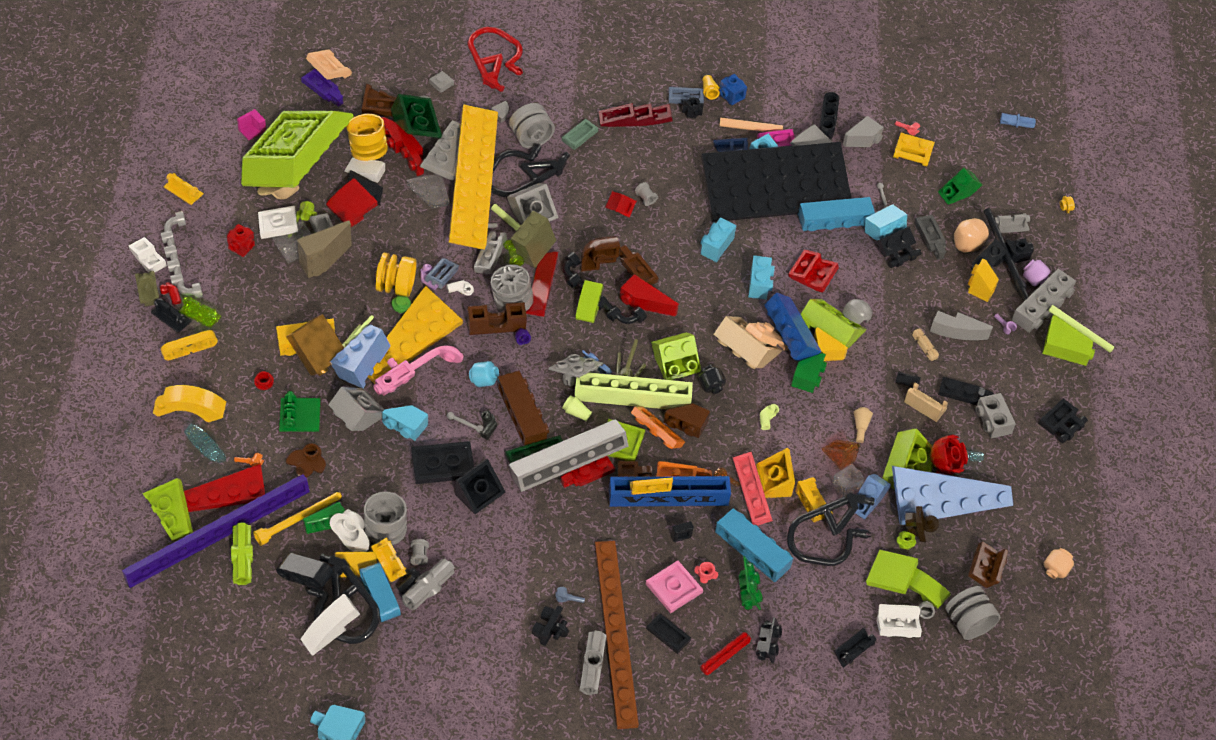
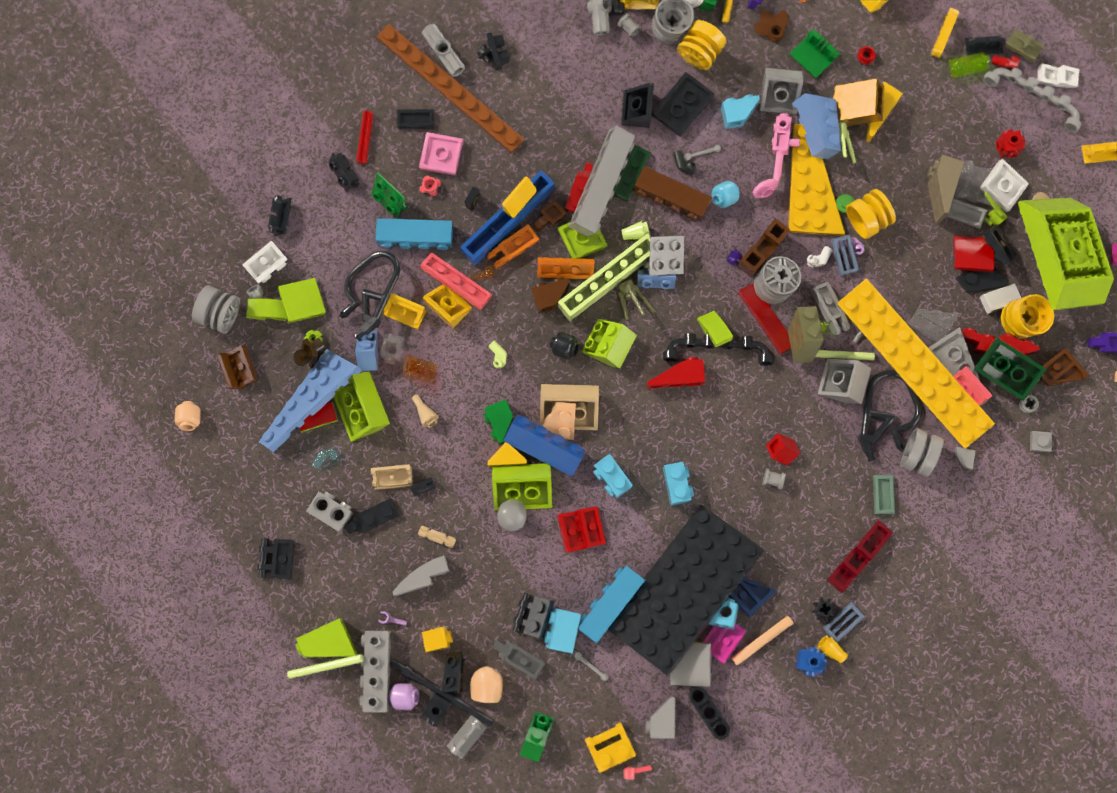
camera: 145 degrees right, 25 degrees up
(329, 189) = (1004, 250): none -> black plate
(385, 480) = (701, 45): none -> yellow wheel
(454, 129) = (972, 385): none -> coral plate
(491, 78) = (1025, 510): red piece -> none
(562, 596) = (508, 81): sand blue hand -> none
(598, 252) = (750, 379): reddish brown brick -> none
(637, 265) = (712, 399): reddish brown hinge -> none
(949, 455) = (334, 434): red cylinder -> none

